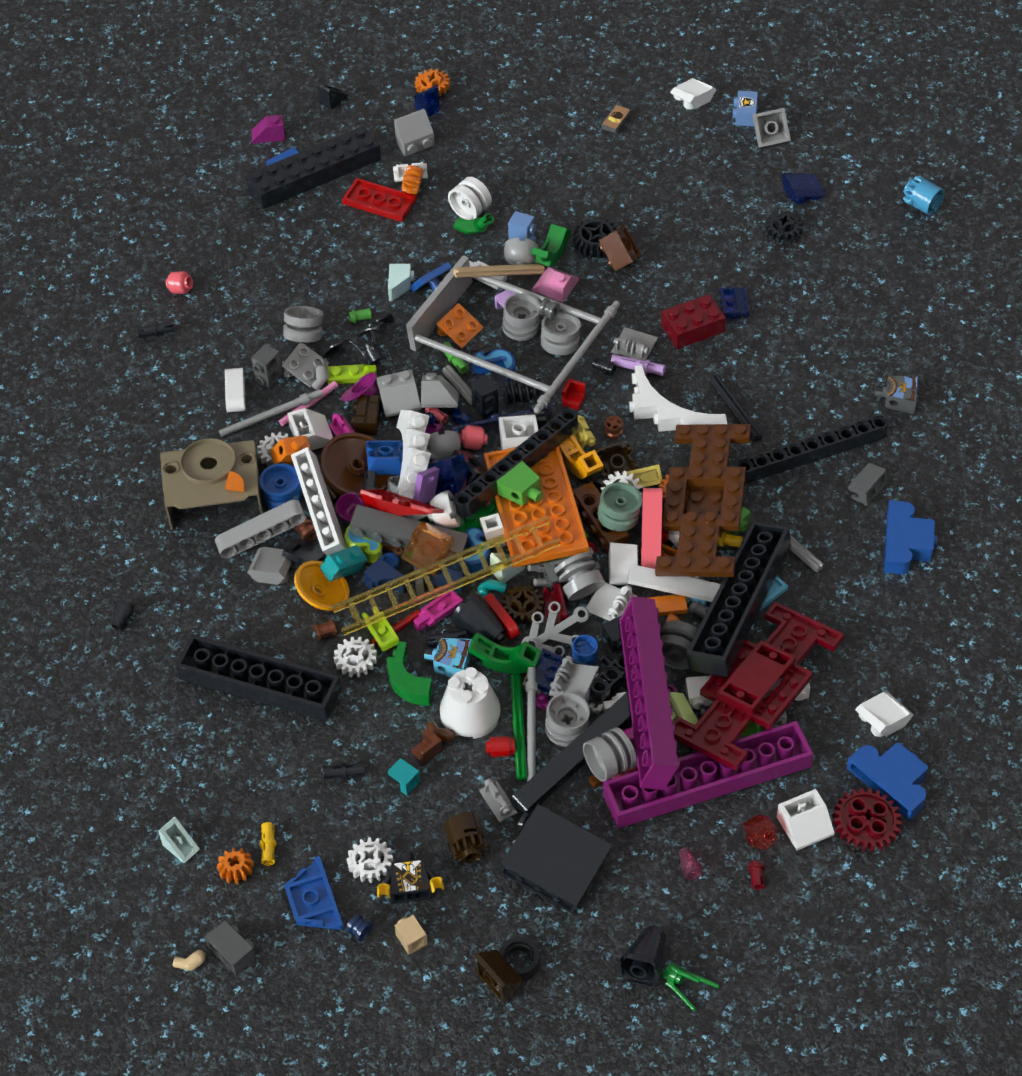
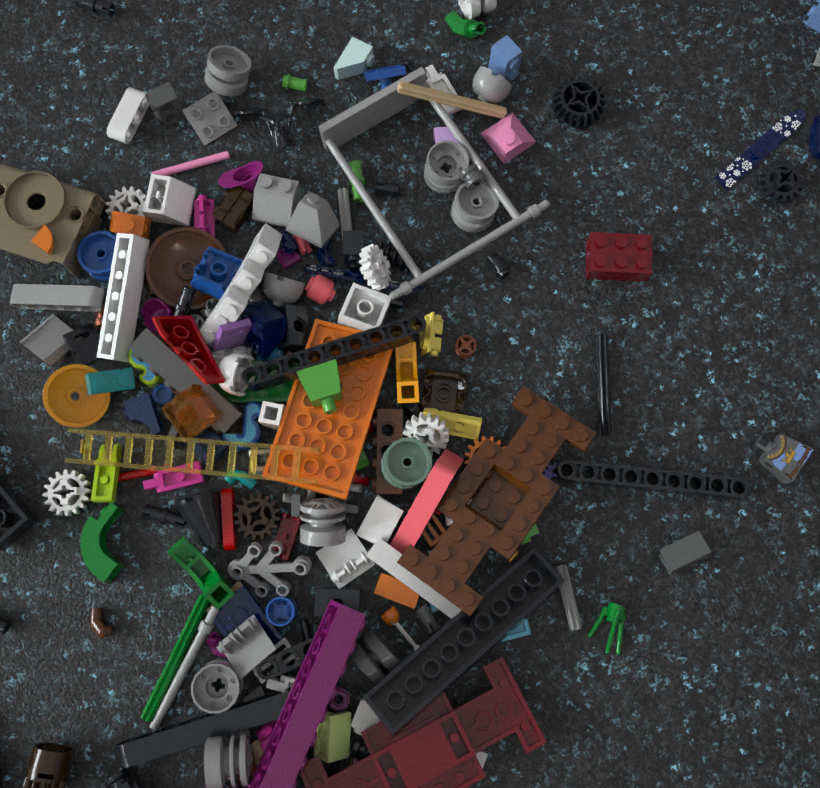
camera: 25 degrees right, 25 degrees up
(303, 399) = (182, 160): light grey bar -> none
(321, 377) = (217, 140): light grey arm -> none
(325, 630) = (57, 445): copper bush -> none
(349, 373) = (247, 148): lime hinge -> none
(406, 775) = (35, 658): teal panel -> none
(428, 748) = (77, 634): copper panel -> none
(449, 656) = (153, 543): torso -> none
(459, 325) = (383, 144): orange hinge -> none
(469, 705) = (153, 613): white cone -> none
(497, 800) = (108, 734): light grey hinge -> none
(499, 357) = (396, 206): blue animal -> none
(500, 746) = (143, 674): red brick -> none
(511, 396) = (375, 267): none -> white gear
(553, 246) = (528, 93): green arch -> none
(573, 394) = (447, 287): red panel -> none
(619, 248) = (593, 129): reddish brown slope -> none
(630, 363) = (540, 288): lavender pin -> none
(633, 344) = (544, 253): light grey hinge -> none
(650, 404) = (527, 362): white arch -> none
(734, 302) = (675, 252): clear blue plate -> none
(754, 214) = (760, 149): none -> clear blue piece
(843, 546) = (616, 616): none -> green plant
(906, 538) = (684, 642): blue brick -> none

